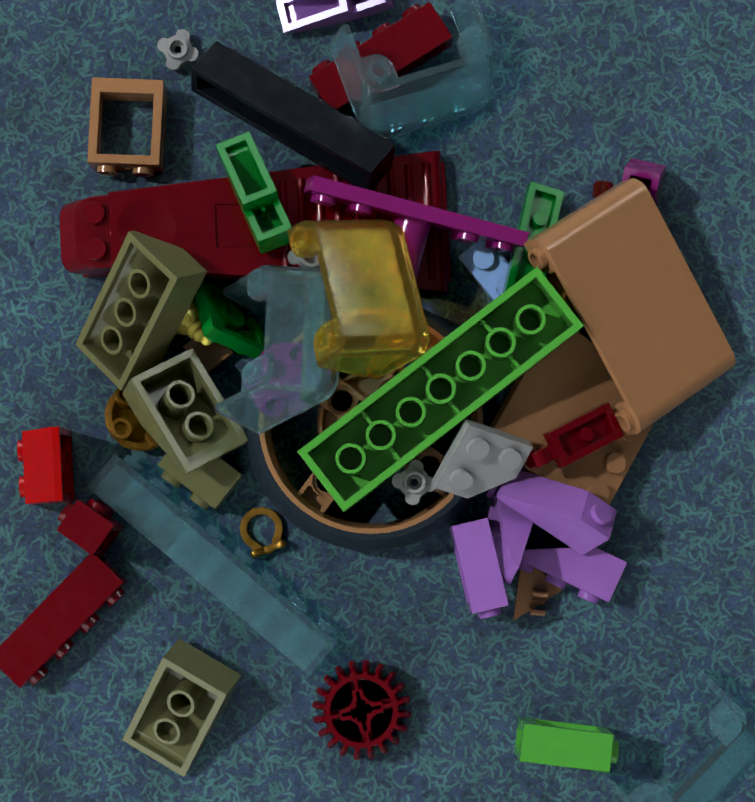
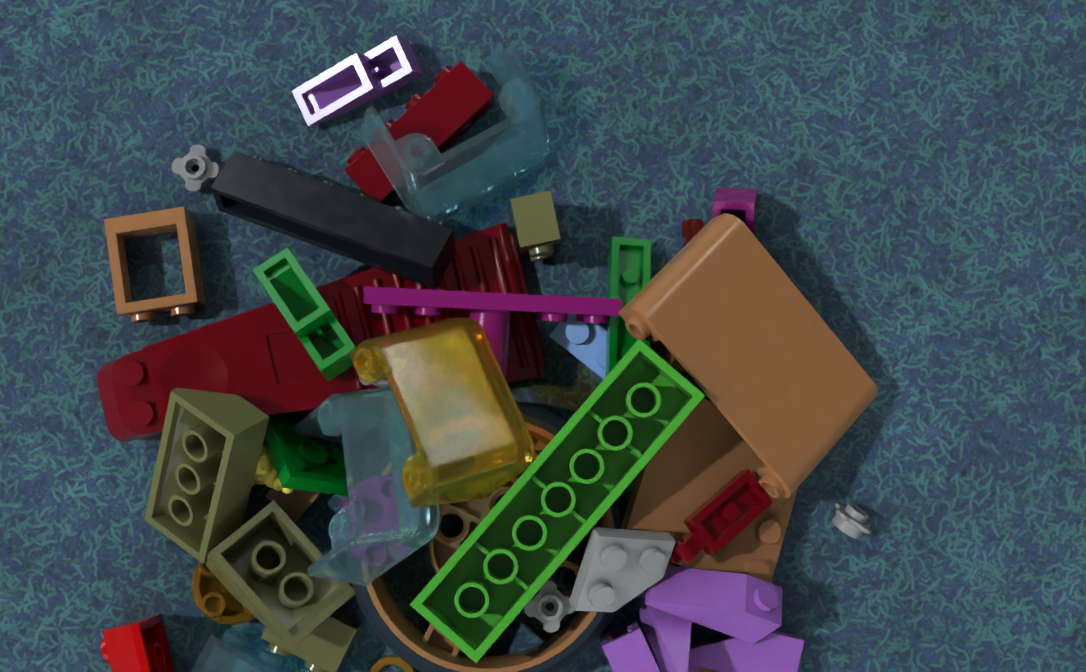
camera: 10 degrees left, 0 degrees up
(466, 158) = (536, 226): none -> olive brick
(689, 469) = (851, 520): none -> light grey plate

